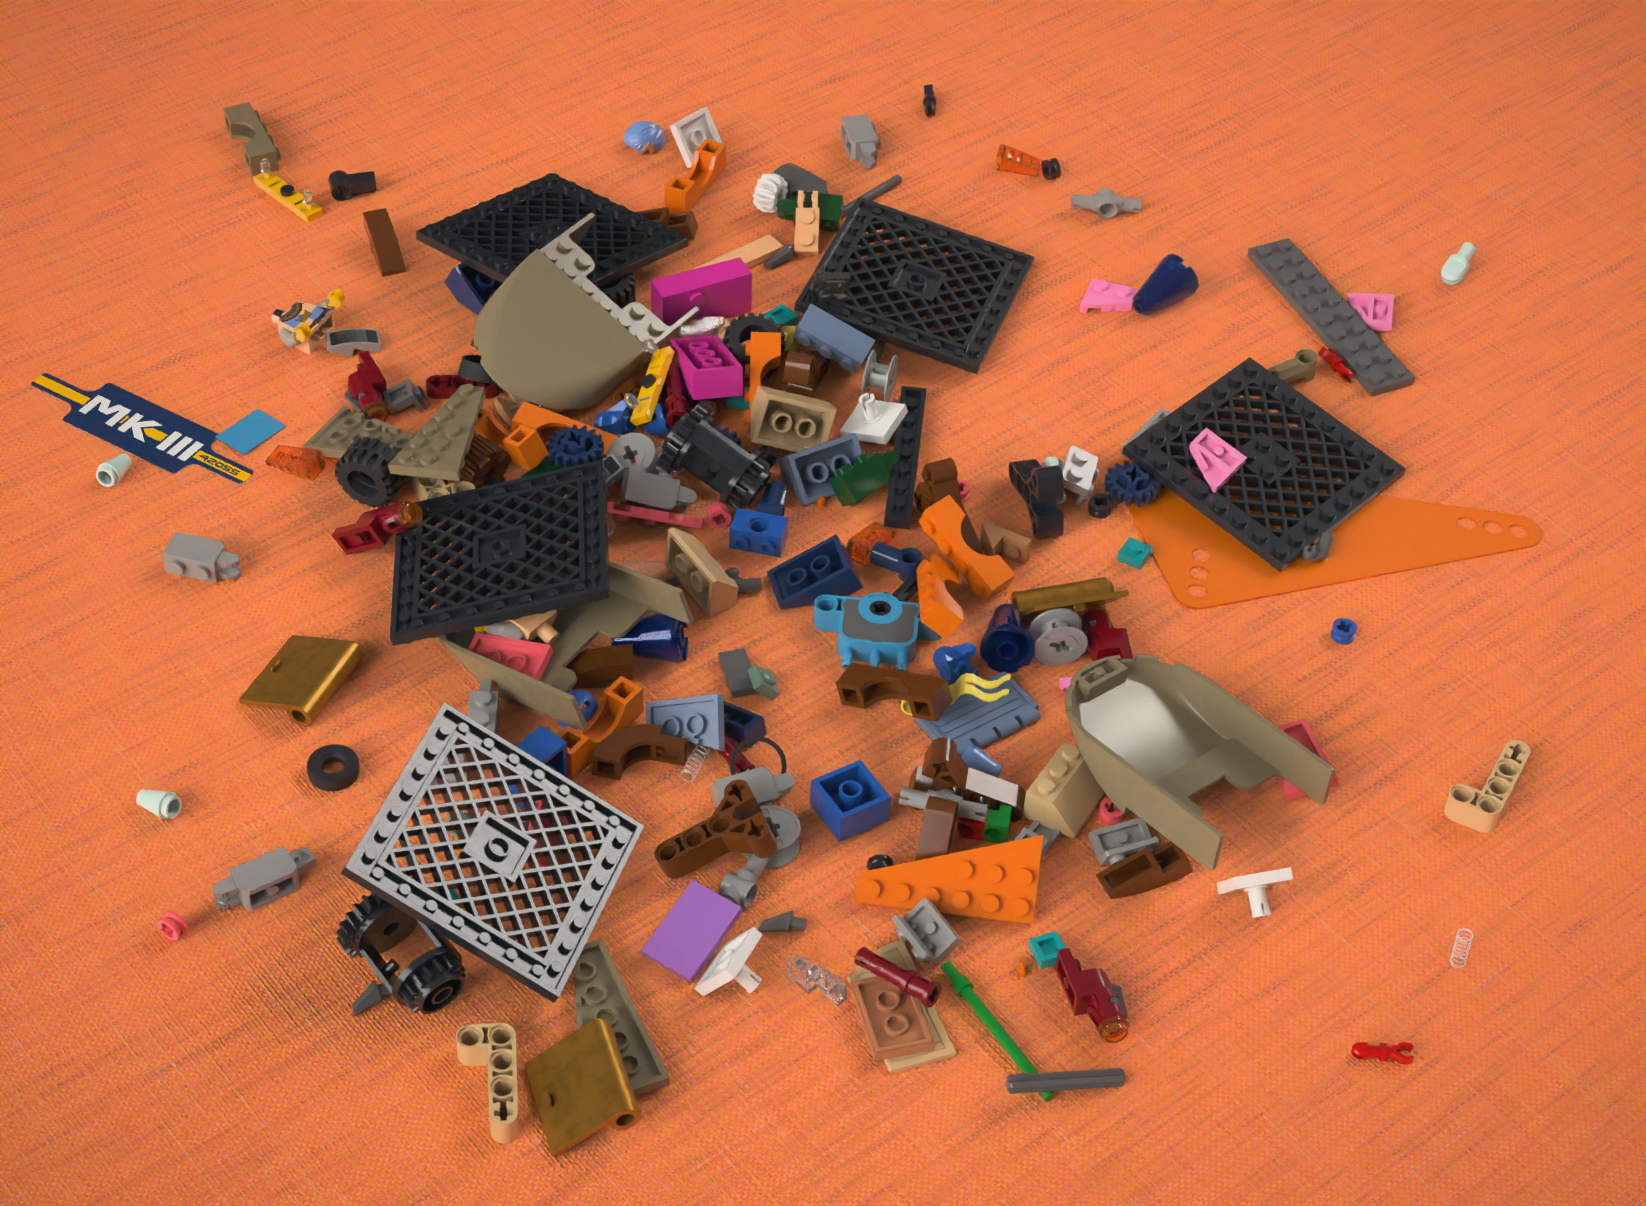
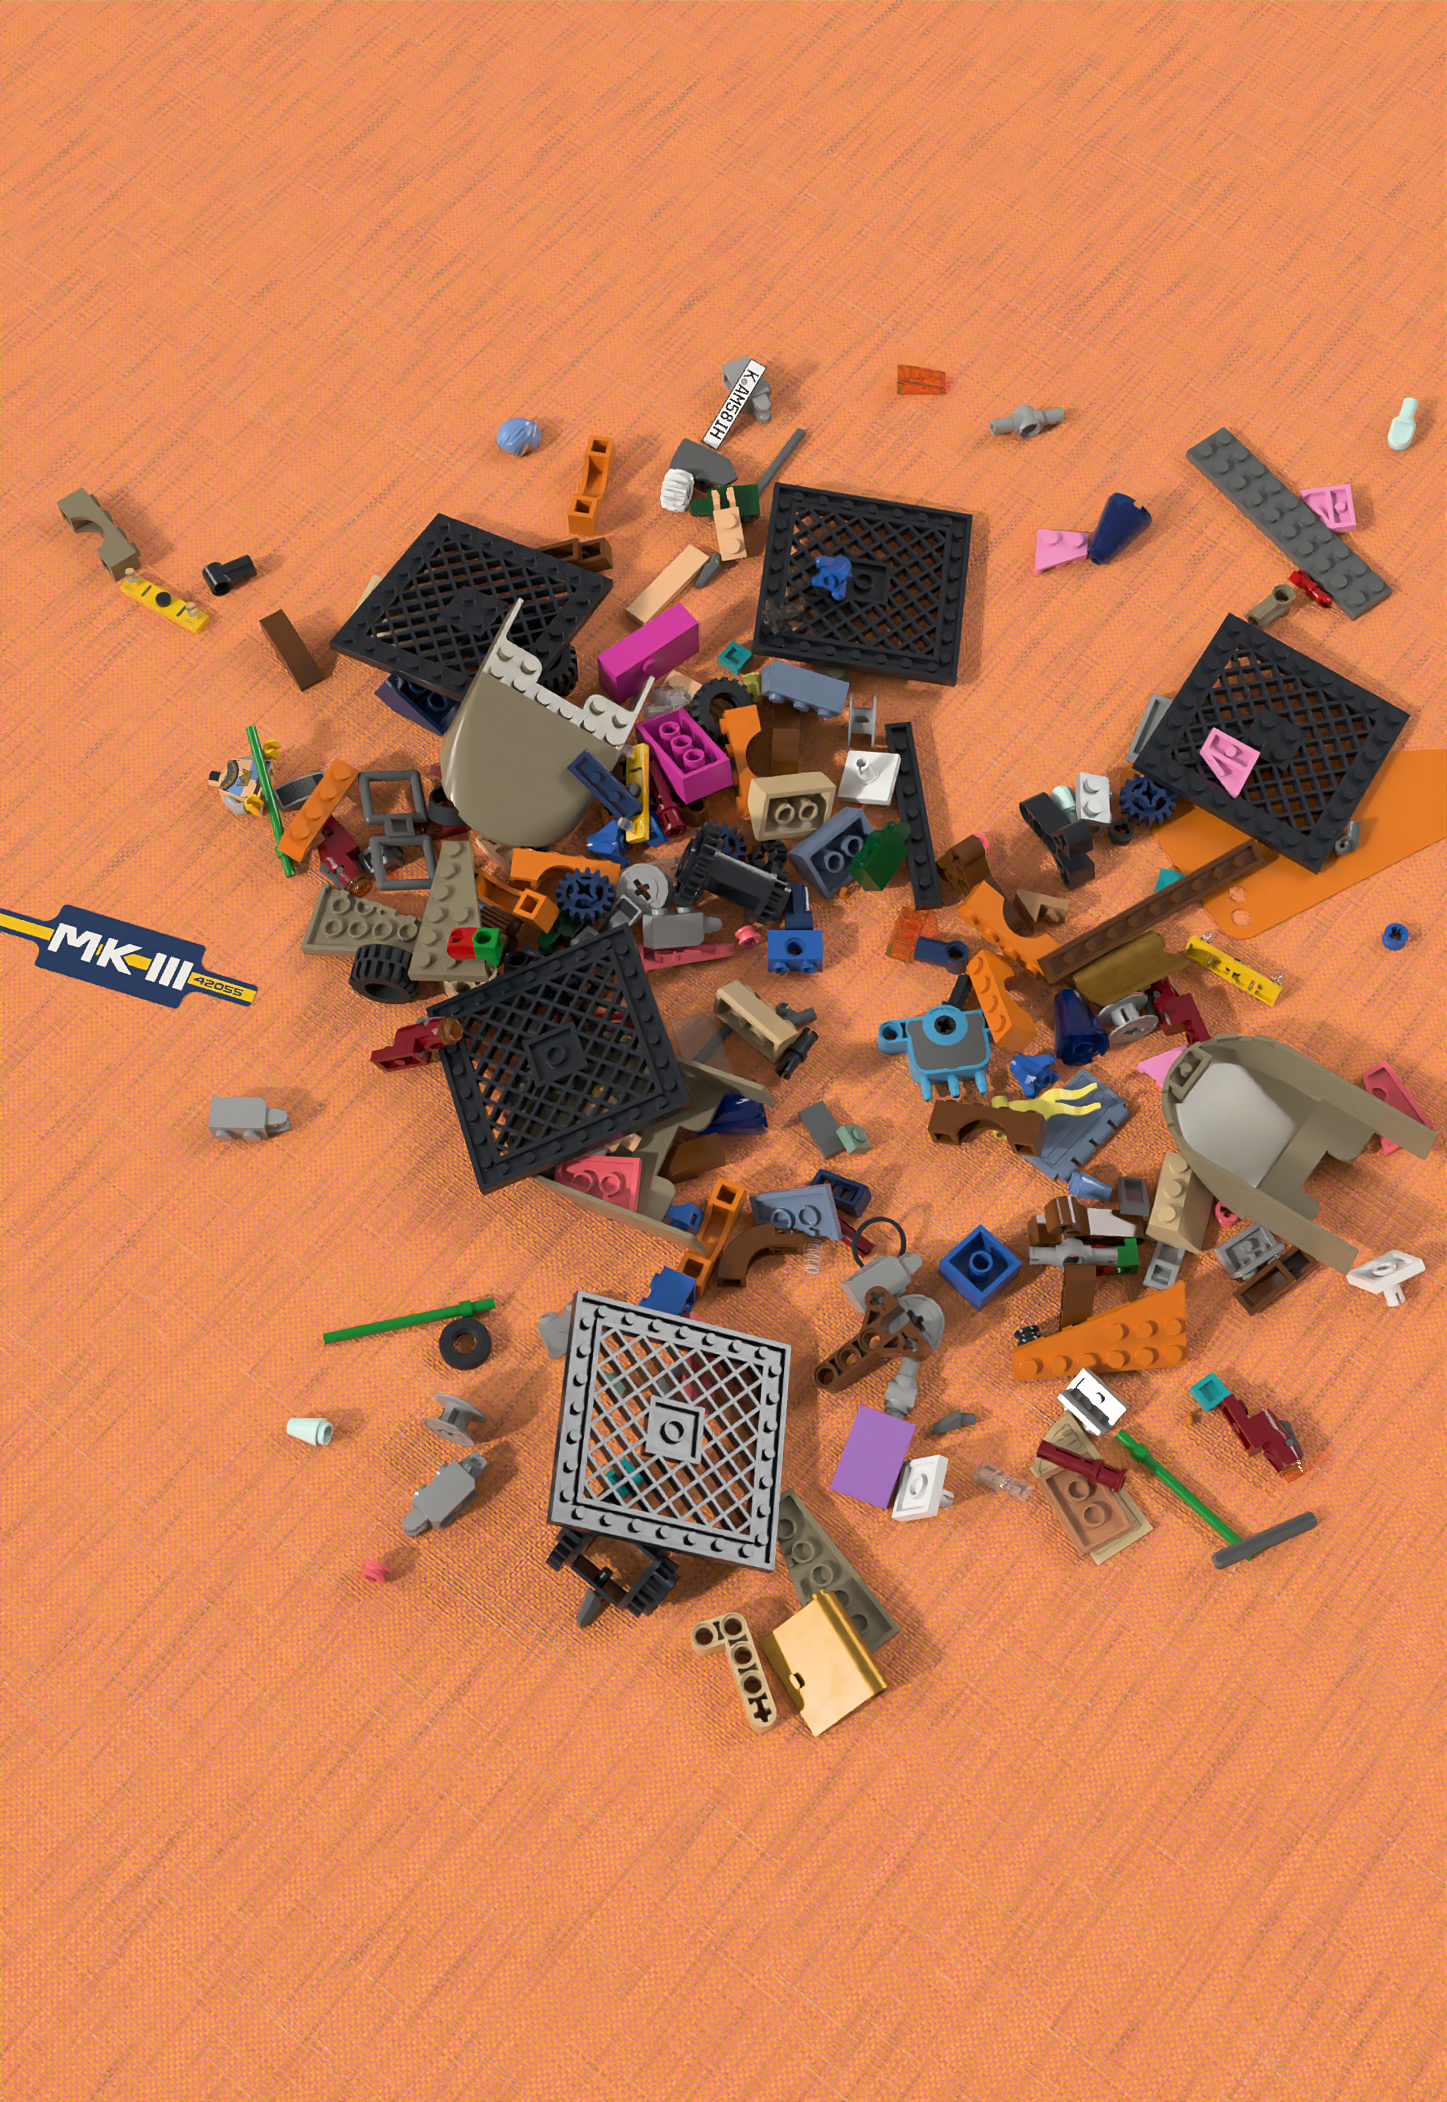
camera: 10 degrees left, 20 degrees up
(113, 470) = (115, 1023): light aqua cone -> none
(250, 431) = (235, 935): dark azure sticker -> none
(292, 819) = (454, 1419): none -> light grey piece
(298, 461) = (313, 969): clear orange slope -> none
(304, 676) = (398, 1241): pearl gold door -> none
(318, 375) = (269, 798): none -> green bar
(340, 358) = (317, 809): none -> orange arch
(343, 738) = (464, 1309): none -> green bar
(425, 374) = (398, 829): none -> dark grey bar
(456, 444) = (475, 944): none -> leg
(485, 706) = (595, 1255): light grey hinge -> none
(621, 365) = (604, 785): none -> dark blue tile
(692, 132) = (574, 427): white tile -> none
(732, 609) = (796, 1053): none -> black pin
(813, 573) = (866, 994): dark blue slope -> none
(843, 144) = (734, 404): none -> sticker
(887, 263) = (833, 575): none -> blue rock
(929, 100) = (803, 313): black piece -> none
(1020, 774) = (1133, 1196): none -> dark grey tile
(1051, 169) = (957, 385): black bush -> none
(1107, 560) = (1150, 911): none -> reddish brown plate
(1176, 625) = (1234, 969): none -> yellow piece

